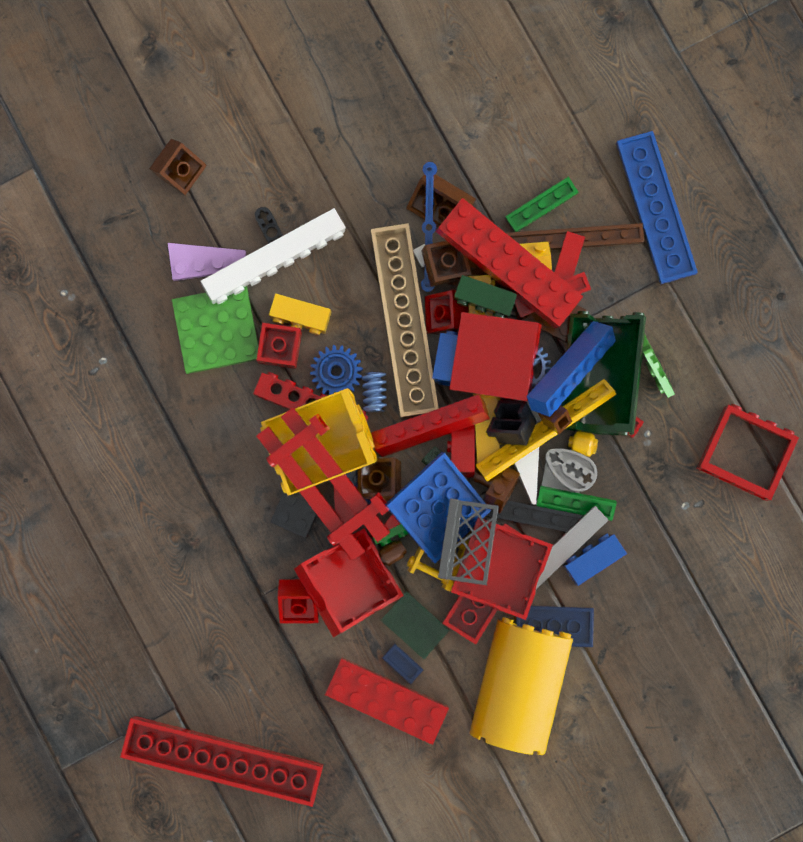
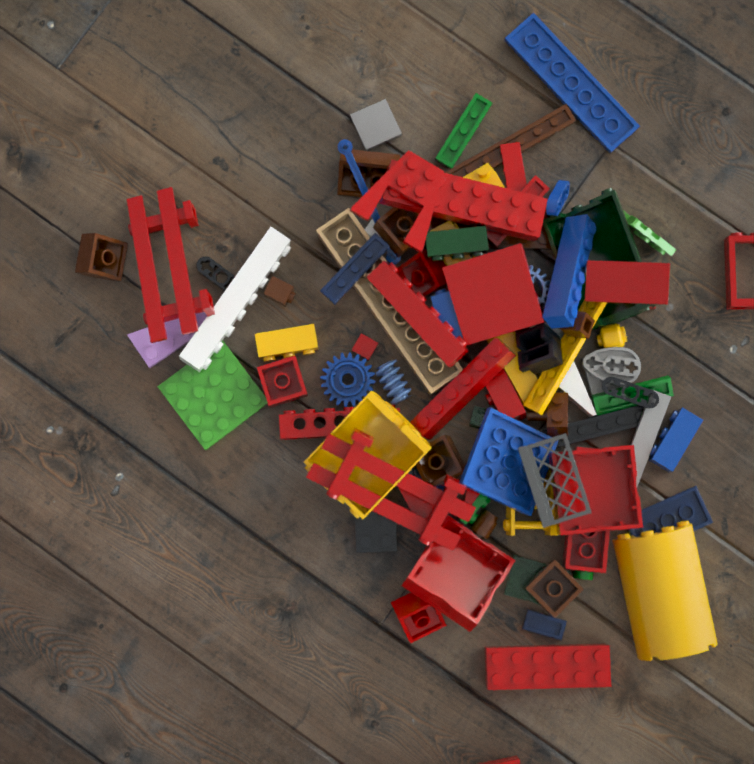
camera: 30 degrees left, 0 degrees up
(249, 163) = (169, 221): none -> red fence
(315, 268) = (279, 291): none -> reddish brown brick
(365, 350) = (365, 346): none -> red tile
(387, 278) = (354, 269): none -> dark blue tile
(421, 342) = (418, 314): none -> red brick
(424, 635) = (553, 588): none -> reddish brown brick
(457, 637) = (583, 574): none -> green tile
(468, 164) = (375, 125): none -> light grey tile
(472, 224) = (414, 180): none -> red wing
(581, 513) = (627, 384): none -> black beam
(594, 300) = (558, 197): none -> blue beam
(616, 401) = (627, 282): none -> red tile

